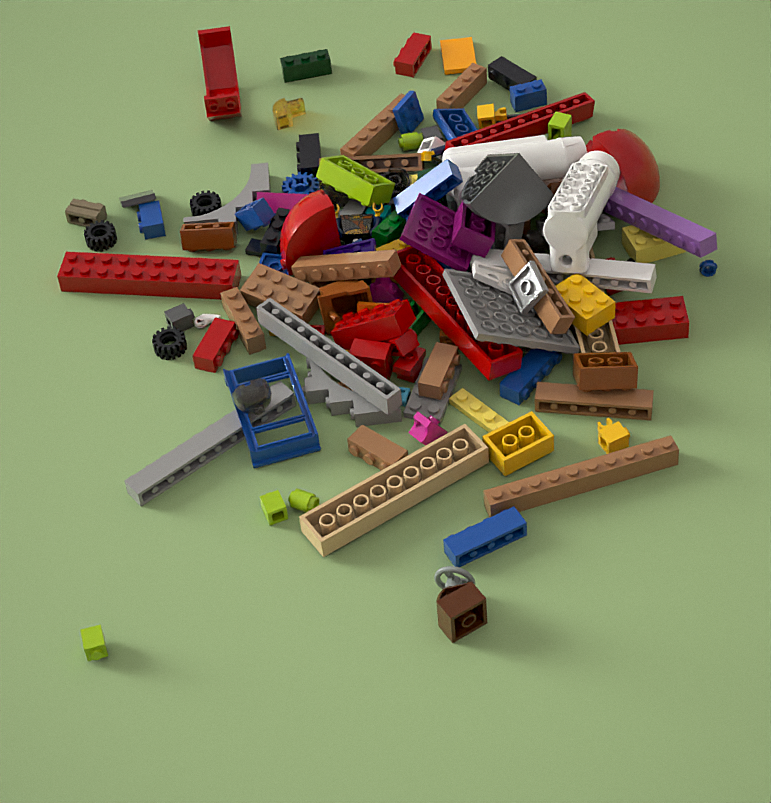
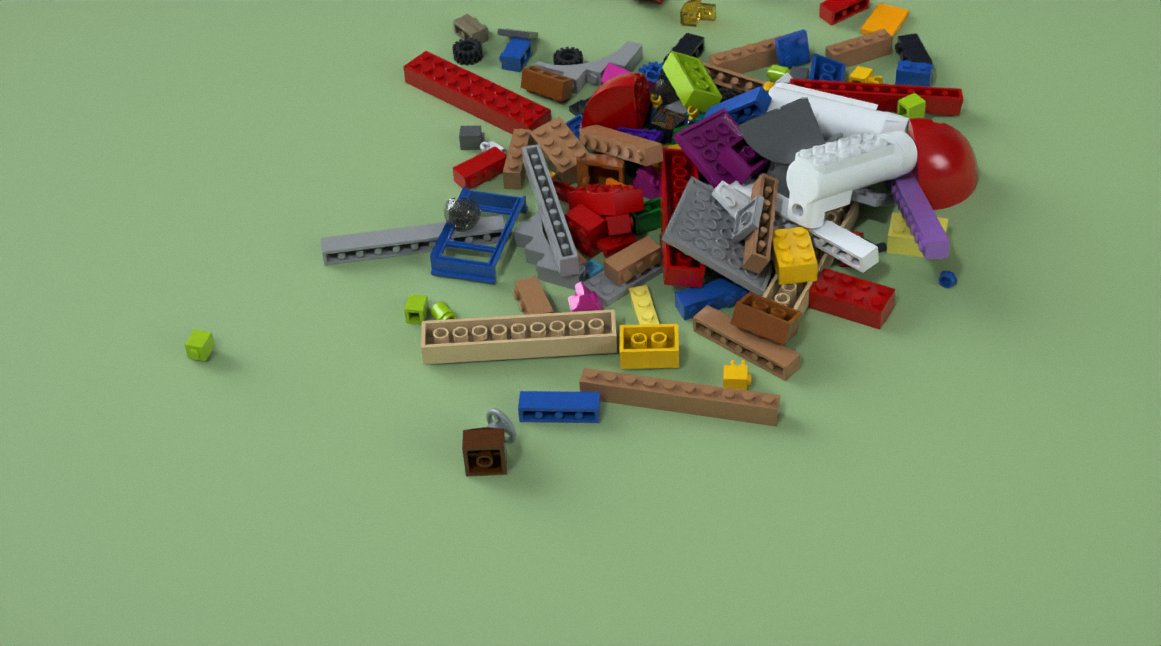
camera: 30 degrees right, 5 degrees down
(169, 335) = (448, 152): black tyre -> none
(255, 214) = (593, 79): blue brick -> none

